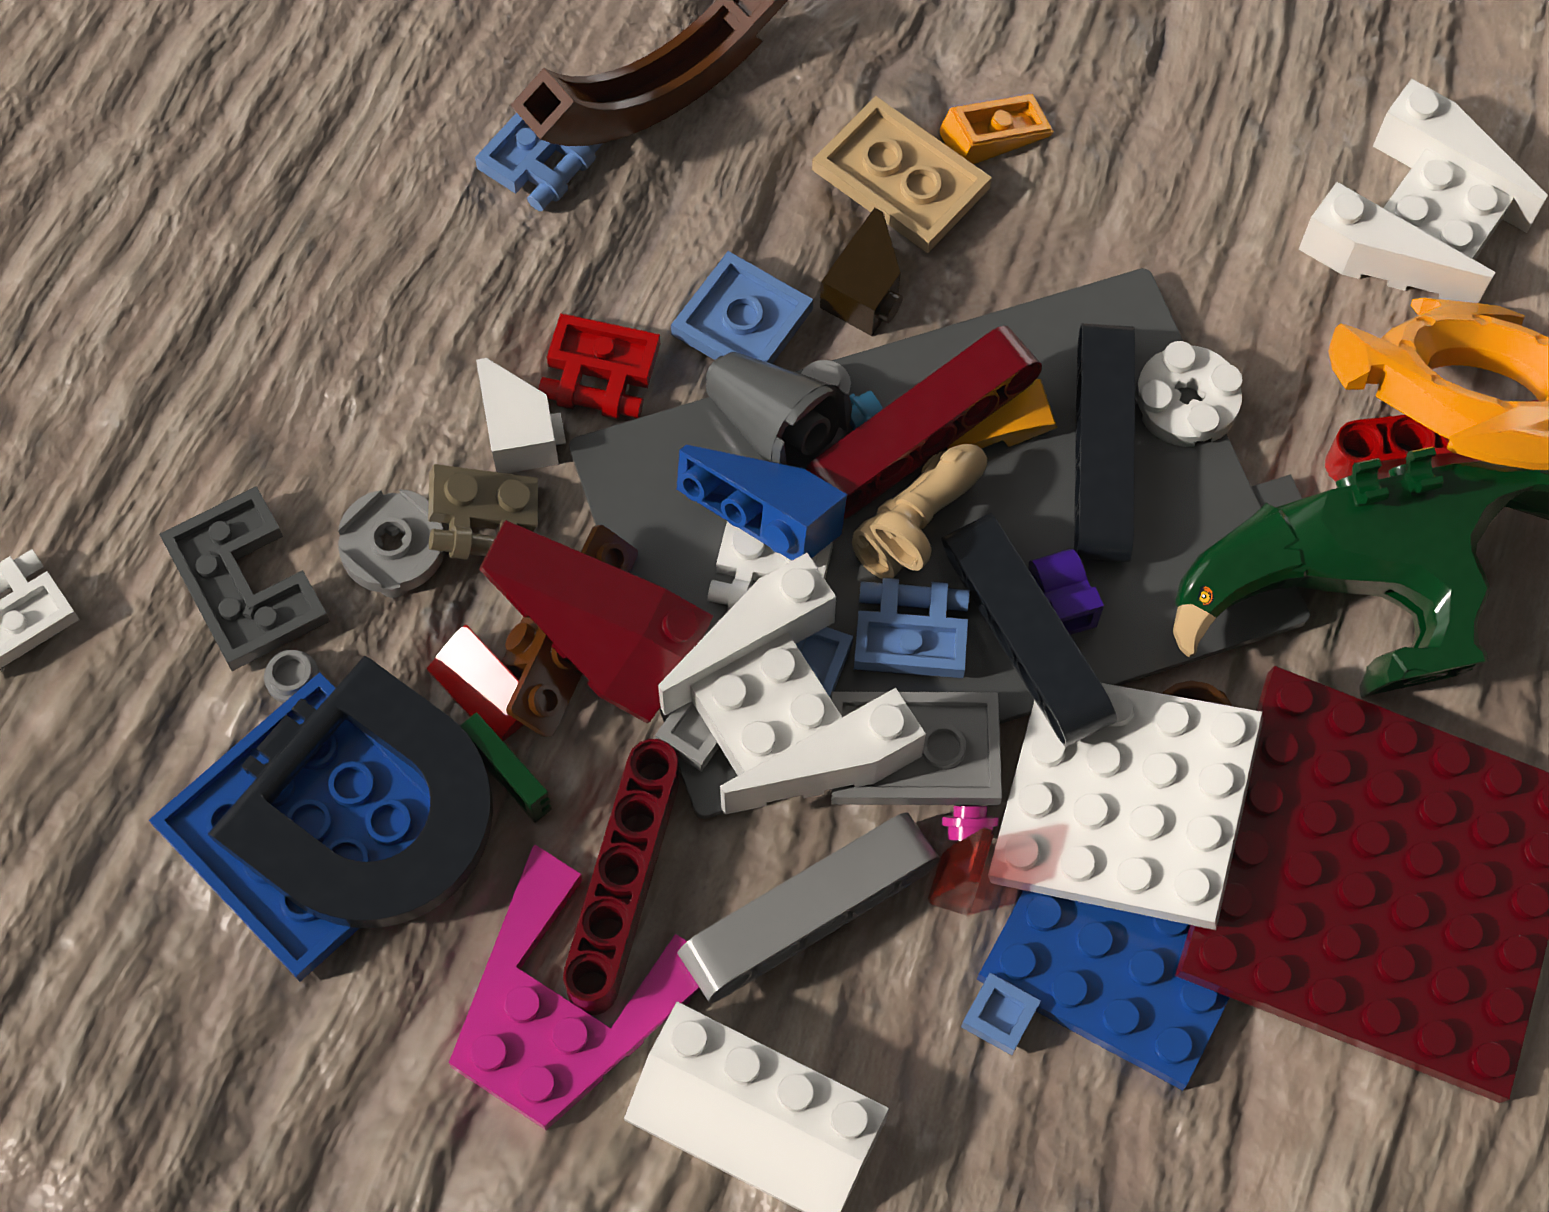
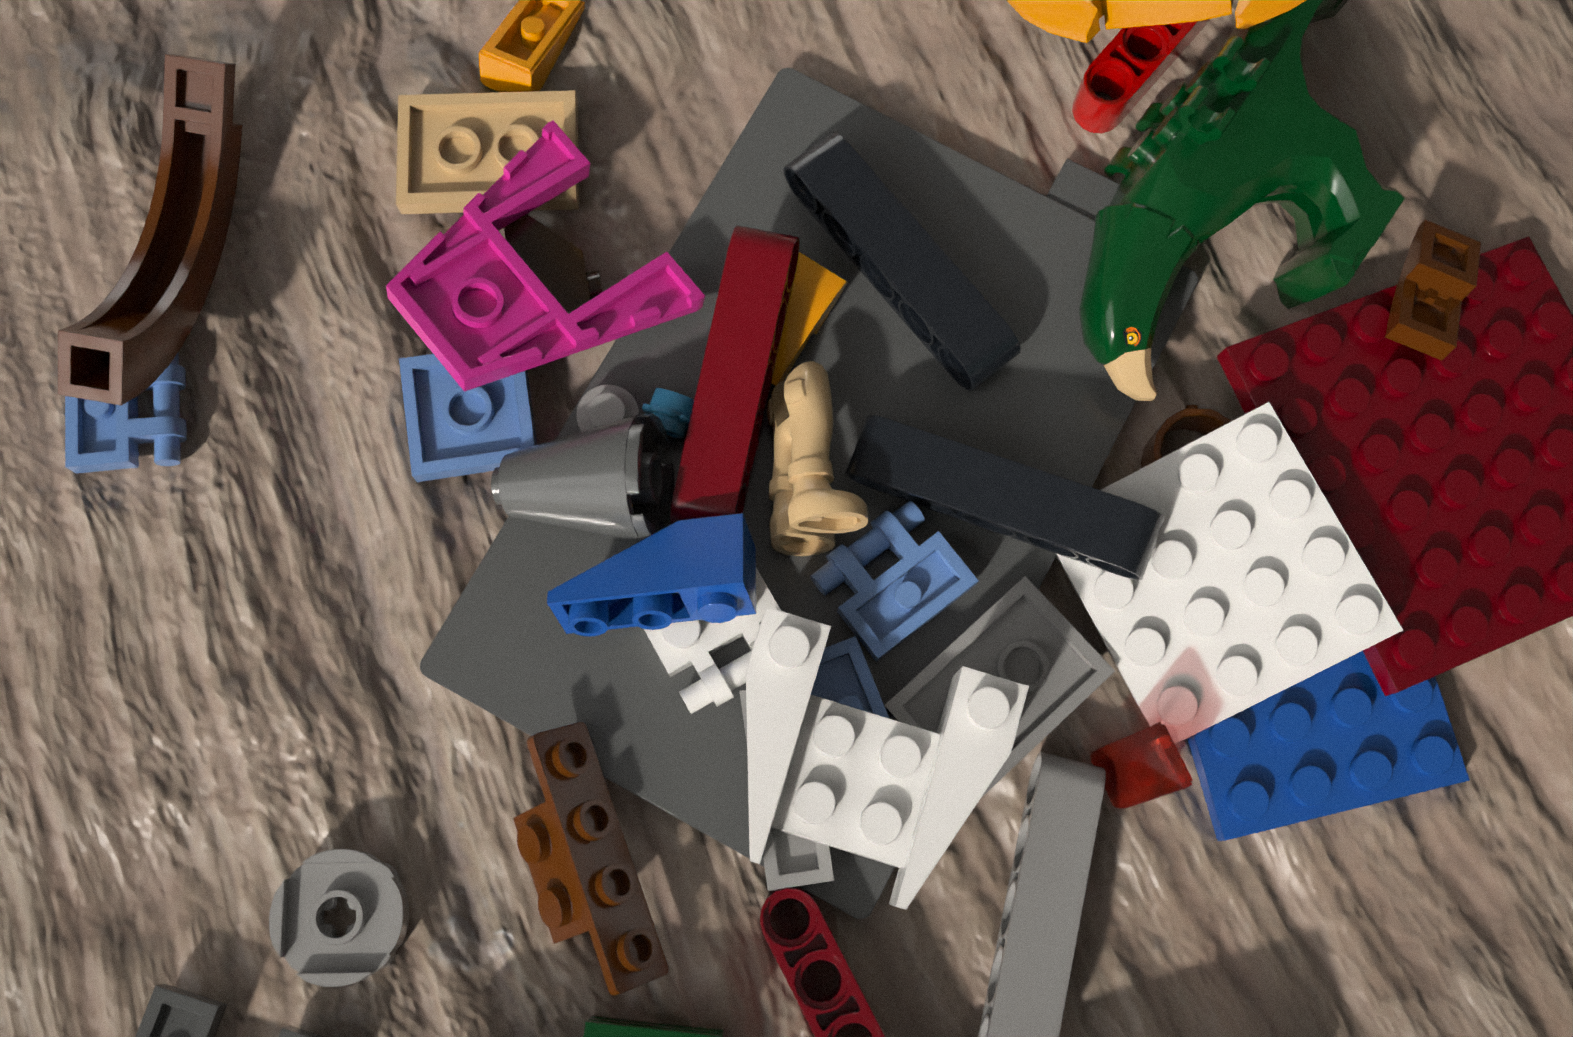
camera: 45 degrees left, 10 degrees up
(476, 680) = (549, 979): slope -> none
(477, 500) = (391, 802): dark tan plate -> none
(518, 421) = (351, 694): white slope -> none
(601, 618) = (631, 832): dark red wedge -> none
(603, 352) = (369, 555): red plate -> none
(806, 255) = (490, 311): none -> dark pink wing
(968, 820) = (1100, 714): dark pink plate -> none
(1000, 1014) = (1274, 859): medium blue plate -> none
(1068, 590) = (992, 425): dark purple leg -> none
(1194, 368) = (933, 124): white plate -> none
(1461, 748) = (1431, 288): none -> reddish brown slope

